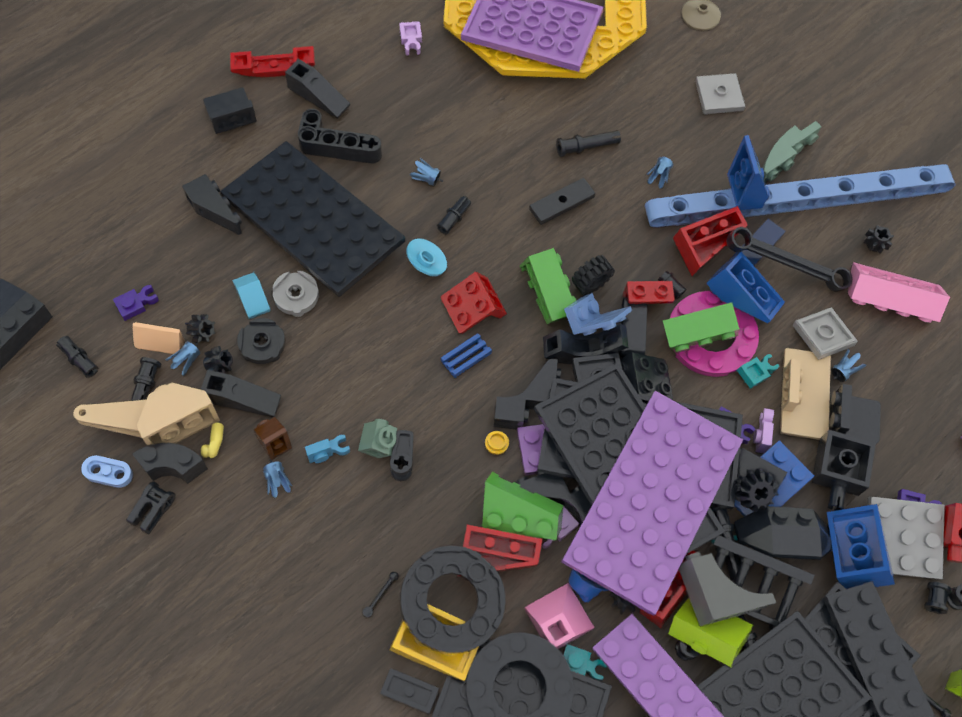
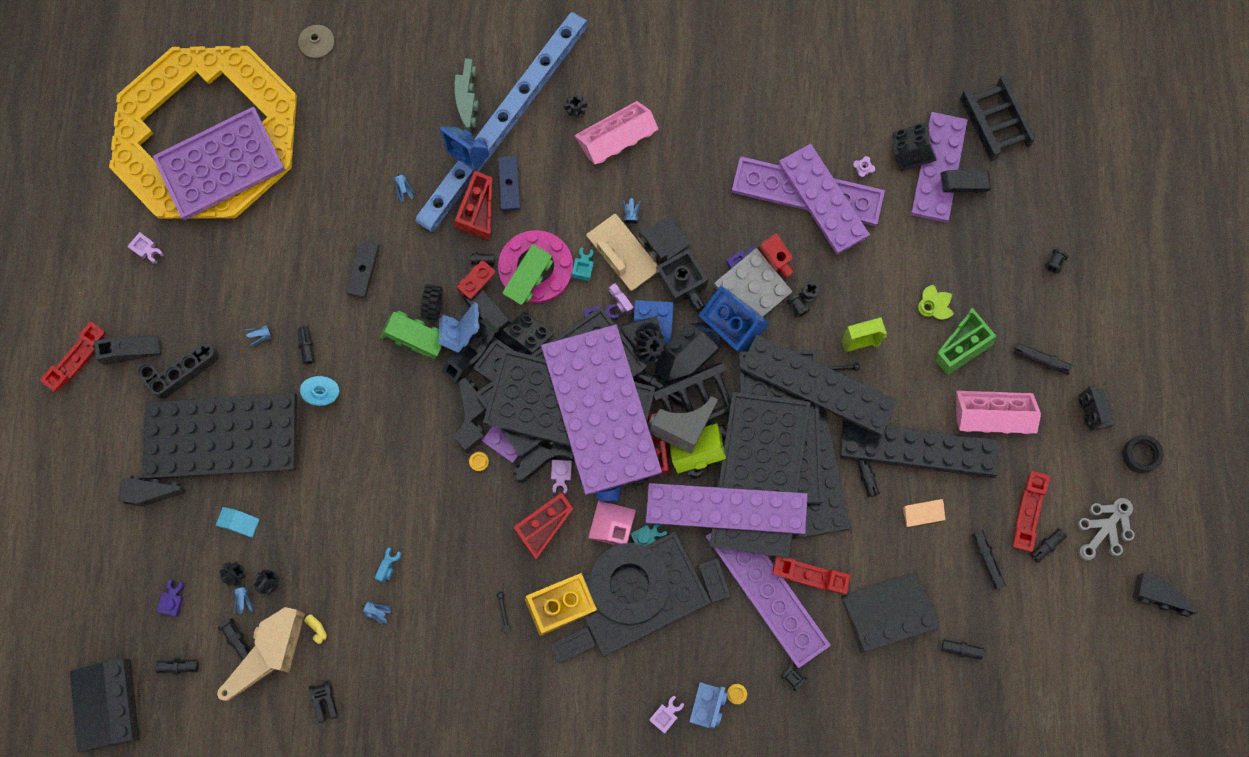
camera: 40 degrees left, 10 degrees up
(108, 473) = (275, 708): light blue plate -> none
(157, 338) = (213, 606): light nougat slope -> none
(170, 460) = (304, 665): black brick -> none
(230, 110) = (84, 418): black bracket -> none
(240, 394) = (302, 587): black slope -> none
(264, 353) = (288, 544): black plate -> none
(273, 437) = (348, 591): reddish brown slope -> none
(300, 304) = (271, 485): light grey plate -> none
(378, 438) = (410, 529): sand green brick -> none
(402, 454) = (433, 523): black piece -> none
(461, 348) = (409, 411): blue tile -> none
(472, 302) = (377, 391): red bracket -> none
(489, 592) = (553, 547): black plate -> none
(520, 511) = (533, 489): bright green wedge -> none
(578, 143) = (333, 218): black pin -> none
(719, 93) = (385, 92): light grey plate -> none
(746, 288) = (529, 220): blue slope -> none
(789, 259) = (536, 175): black piece -> none
(825, 333) = (599, 202): light grey plate -> none

